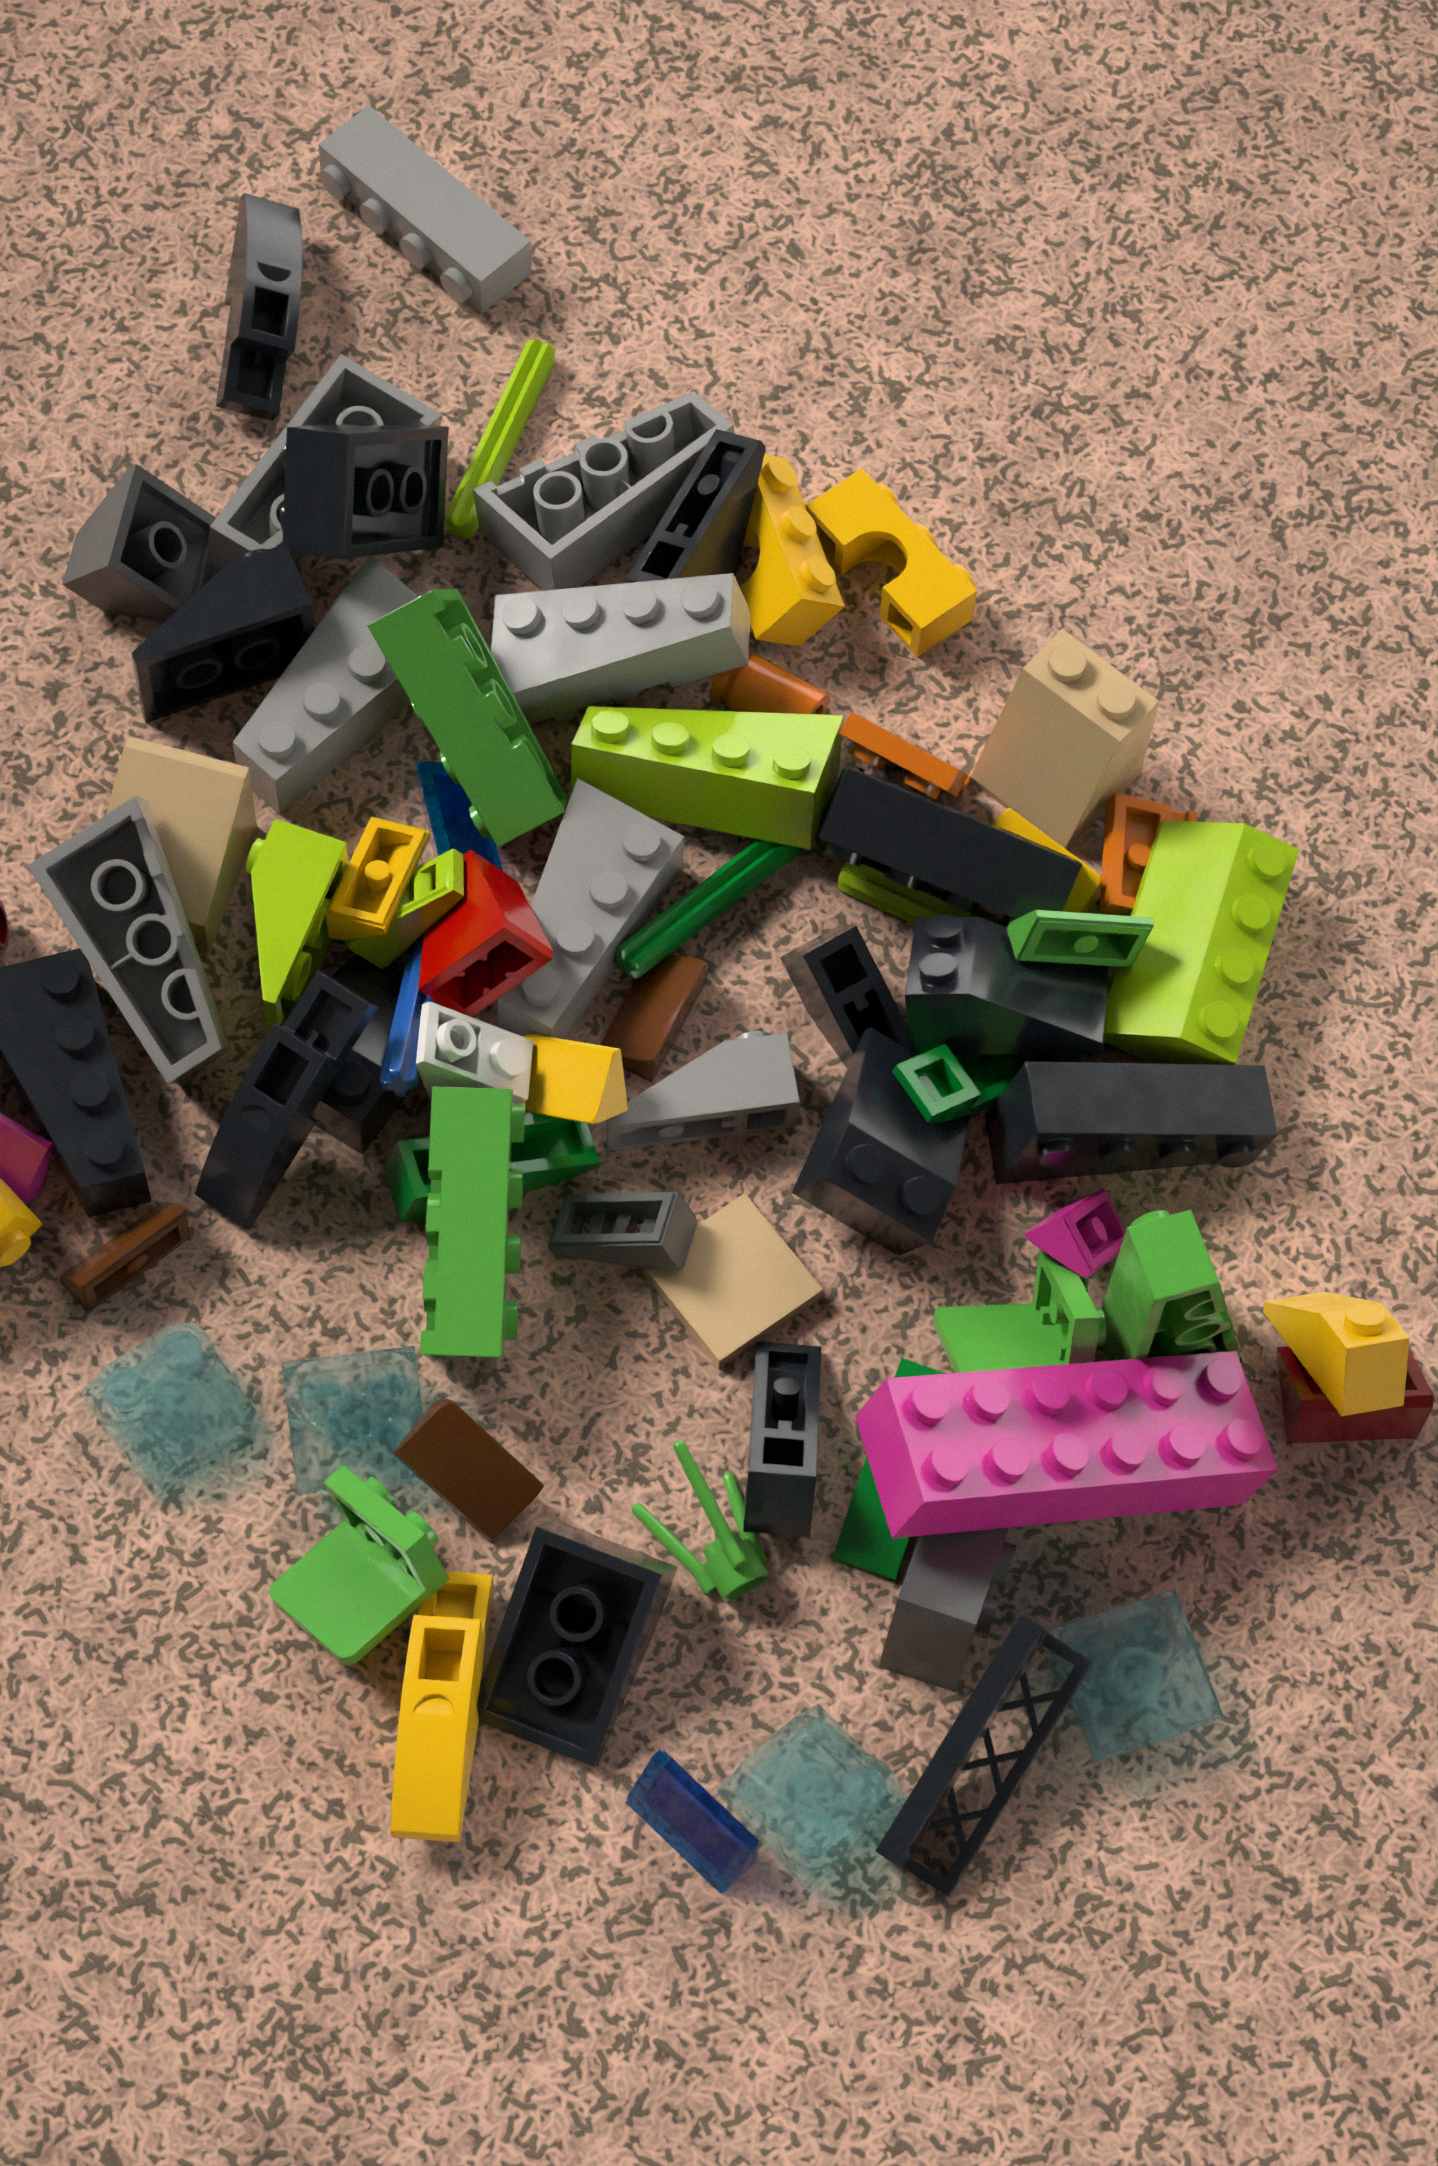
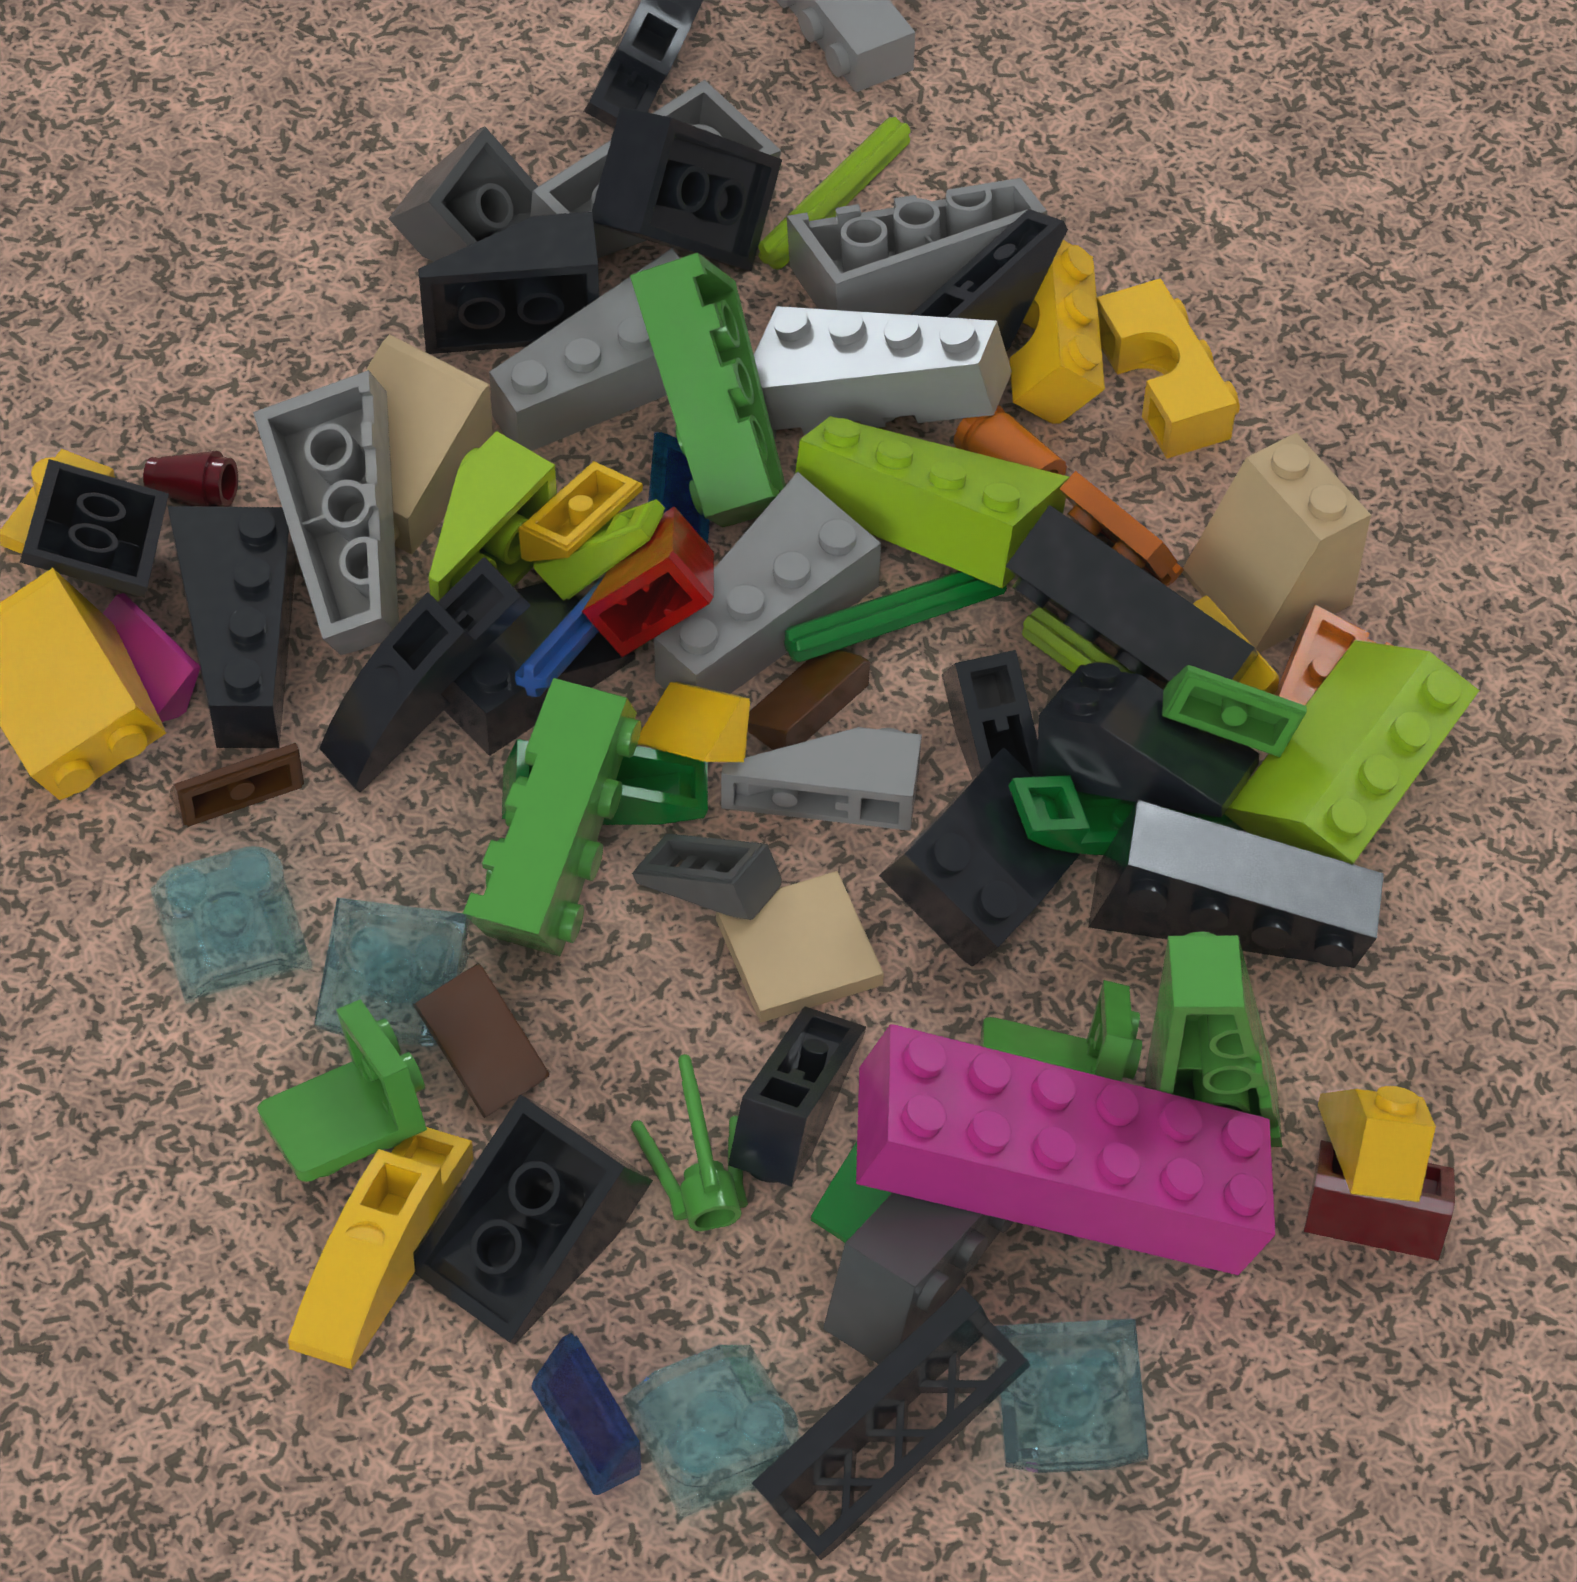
camera: 20 degrees right, 10 degrees down
(471, 1053) = (602, 662): white slope -> none
(1081, 1233) = (1133, 973): dark pink slope -> none

